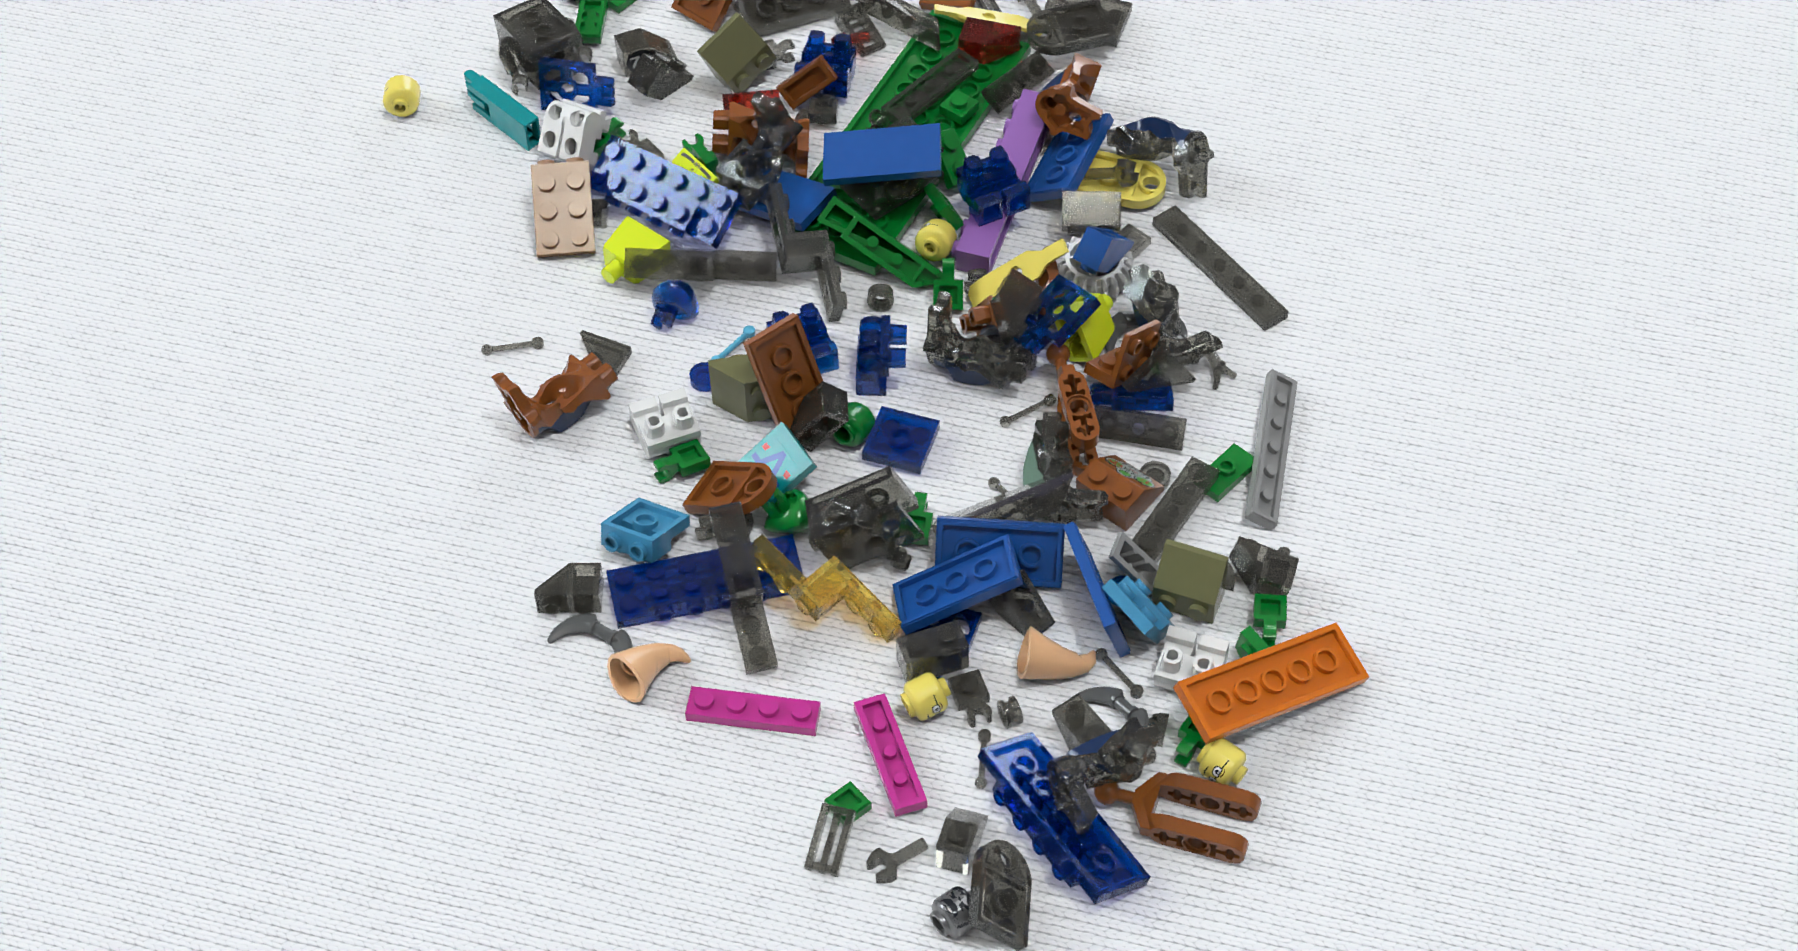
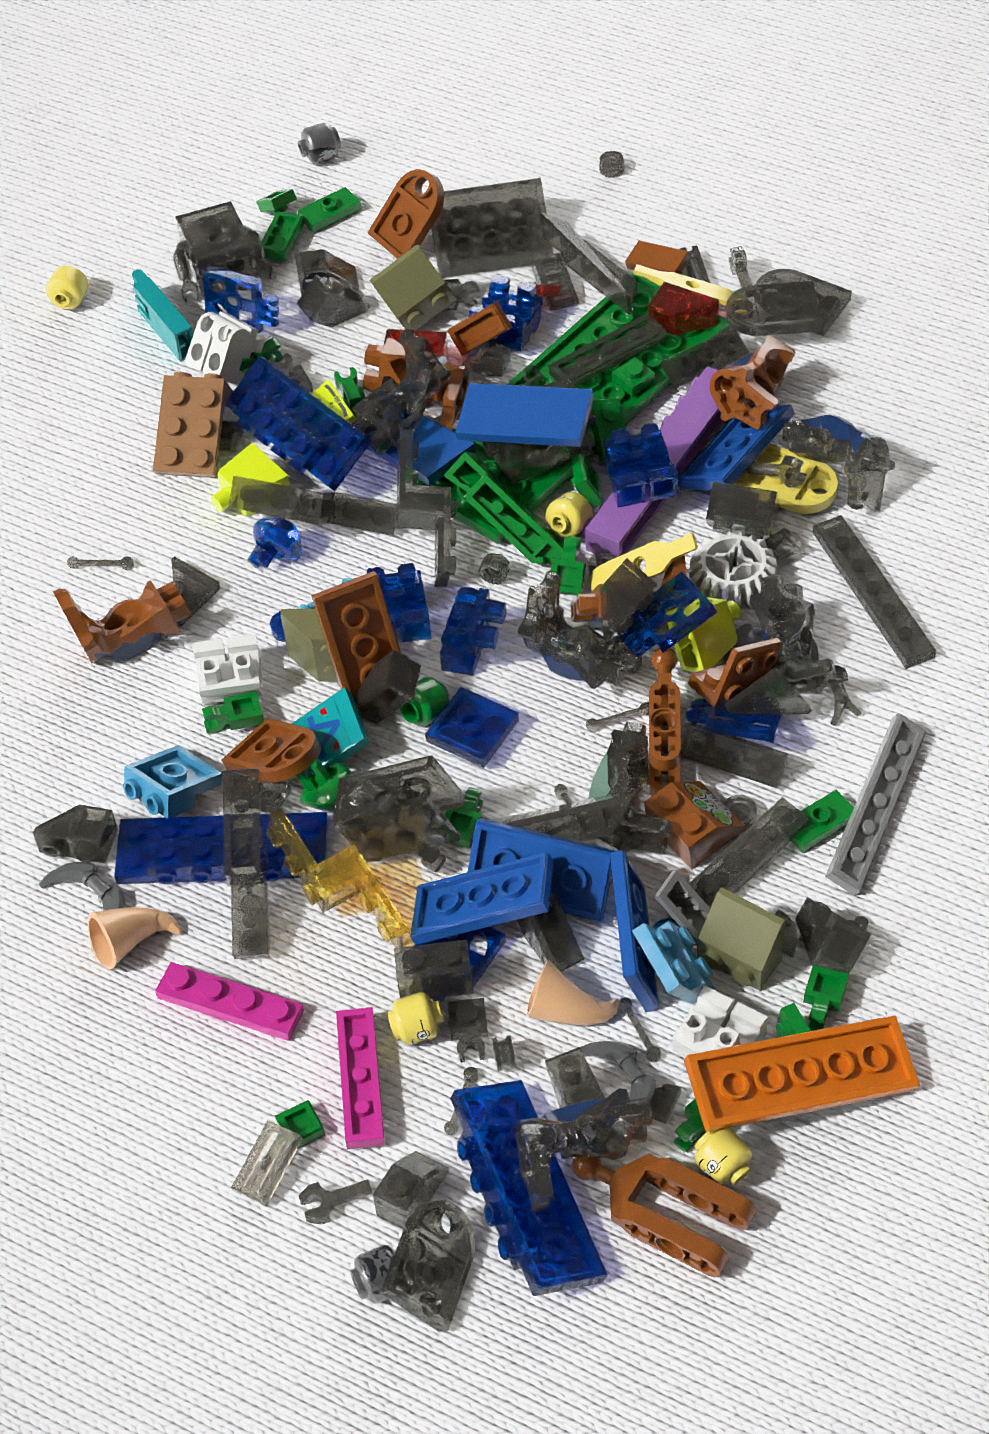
camera: 15 degrees right, 0 degrees up
(1101, 249) = (740, 551): blue slope -> none

